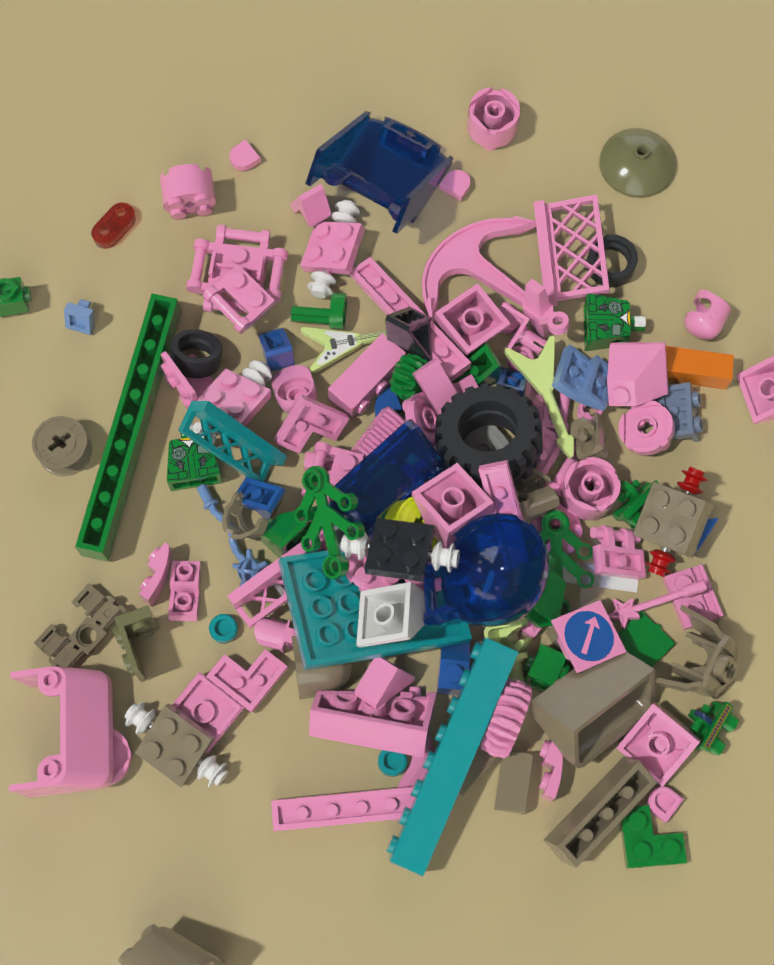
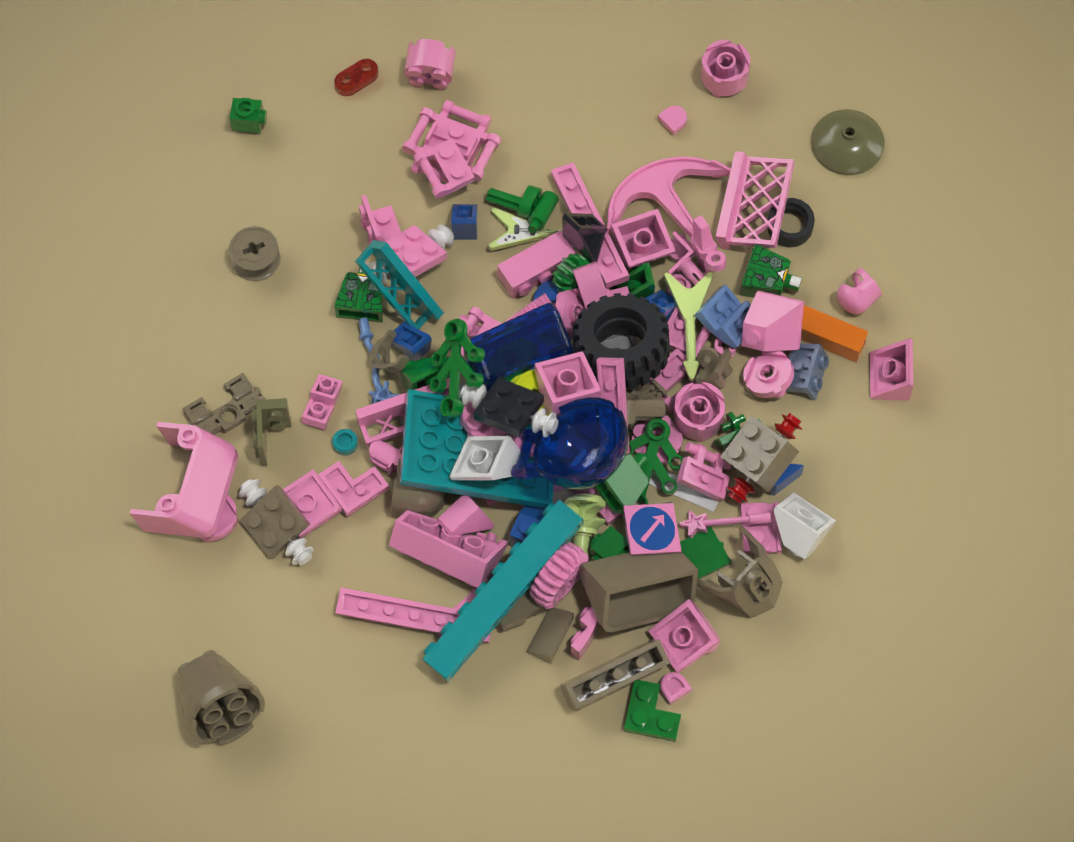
camera: 20 degrees right, 5 degrees down
(79, 317) = (302, 148): medium blue tile -> none
(128, 429) = (316, 253): green brick -> none
(160, 566) = (307, 374): bright pink slope -> none
(197, 340) = (396, 194): black tyre -> none
(243, 156) = (490, 46): bright pink tile -> none
(290, 384) = (469, 259): bright pink cap -> none
(309, 417) = (472, 284): bright pink plate -> none
(312, 205) = (535, 104): bright pink slope -> none
(332, 248) = (542, 146): bright pink plate -> none
(355, 317) = (542, 211): none -> green cylinder
(384, 164) = (612, 83): clear blue windscreen -> none
(392, 763) = (452, 589): teal tile -> none
(709, 723) = (746, 630): green hips -> none
(737, 583) = (801, 525): none -> white slope

